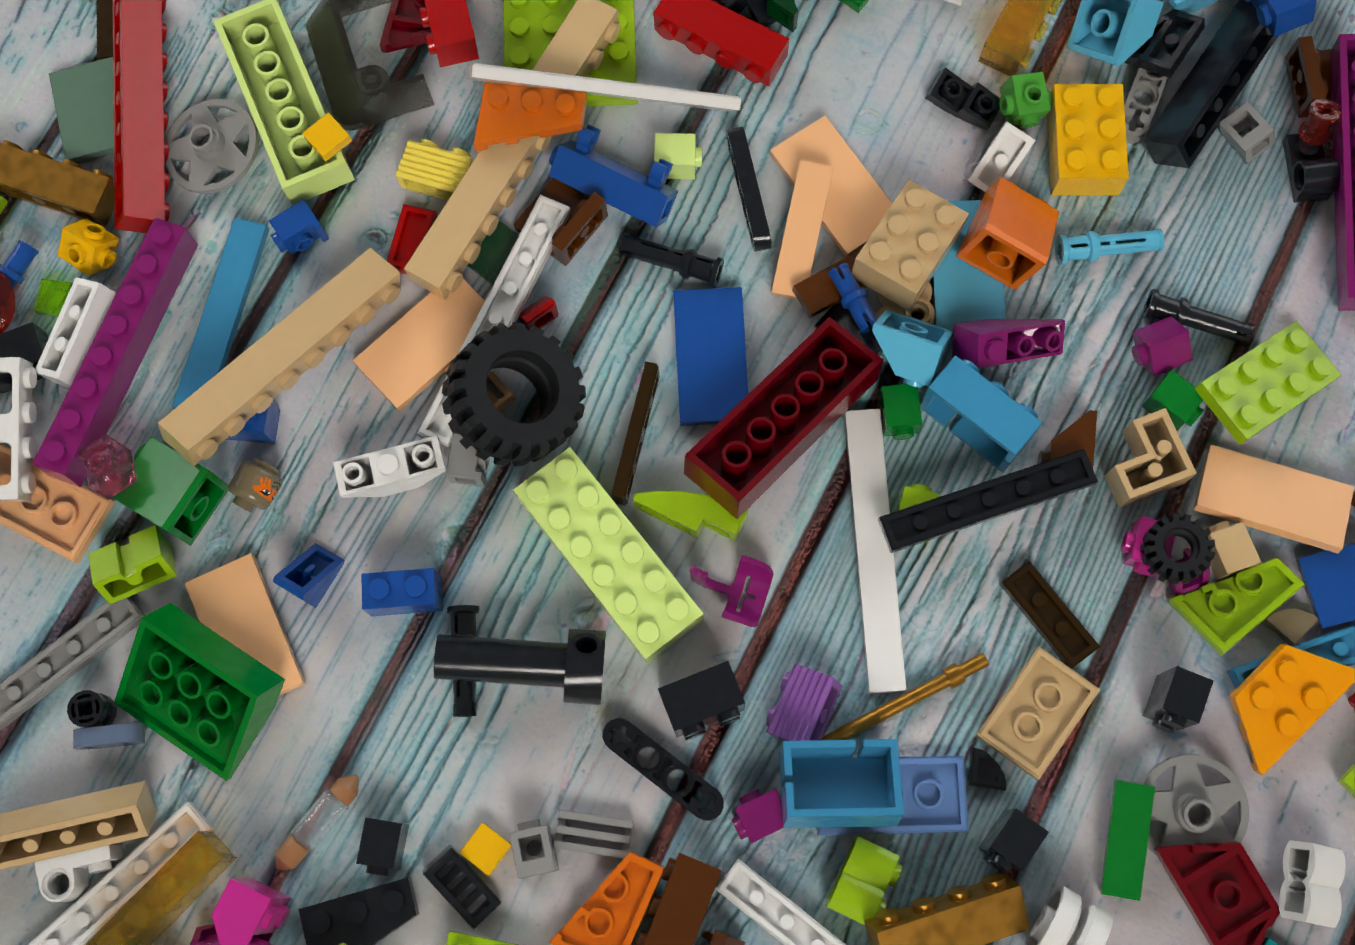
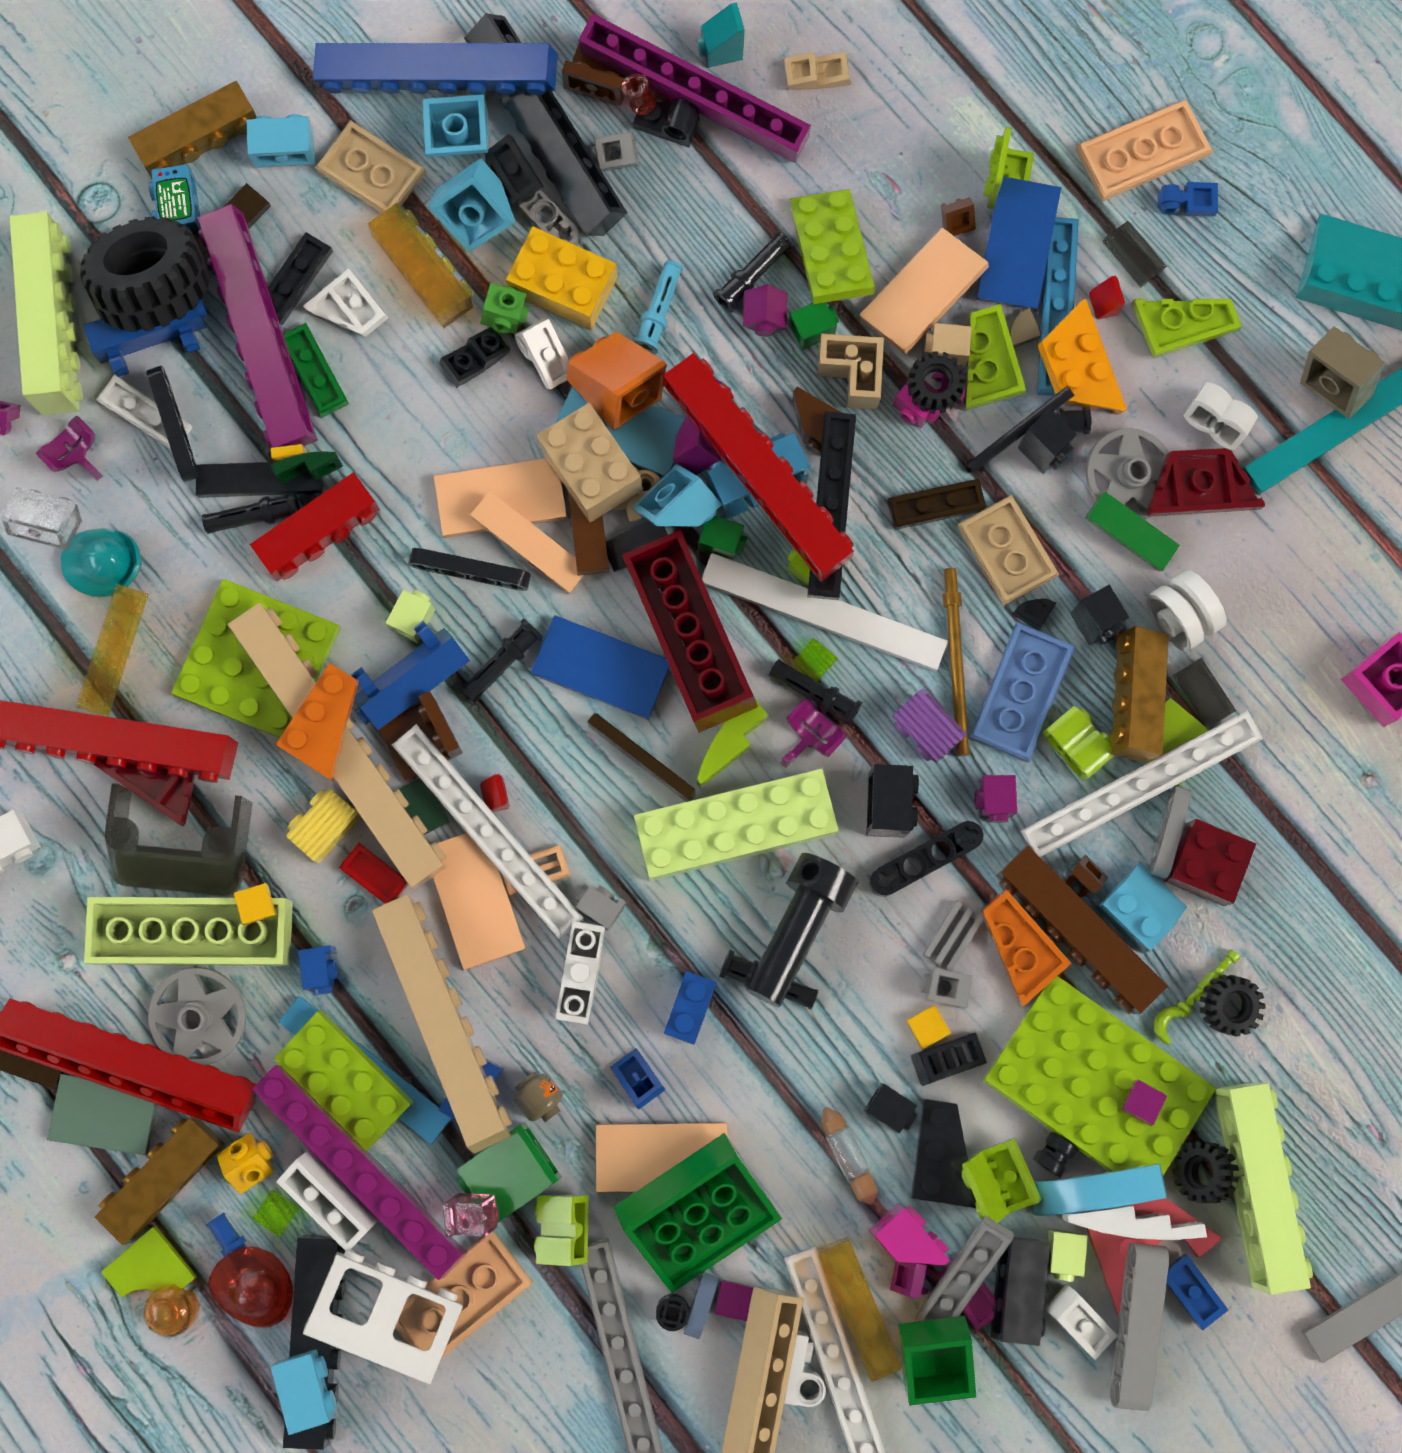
camera: 75 degrees left, 5 degrees up
(128, 766) = (733, 1300): none -> magenta tile
(200, 299) = (343, 1080): none -> lime plate
(543, 365) = (576, 805): black tyre -> none
(603, 87) = (328, 648): white tile -> none
(784, 592) = (829, 699): none -> black pin
(819, 562) = (815, 660): none -> clear neon green tile
(834, 790) = (1006, 726): dark azure piece -> none
(853, 297) = (612, 528): blue pin -> none
(983, 399) = (758, 467): none -> red brick
(1167, 662) = (1019, 430): none -> black bar
(1219, 721) = (1077, 419): none -> black bush

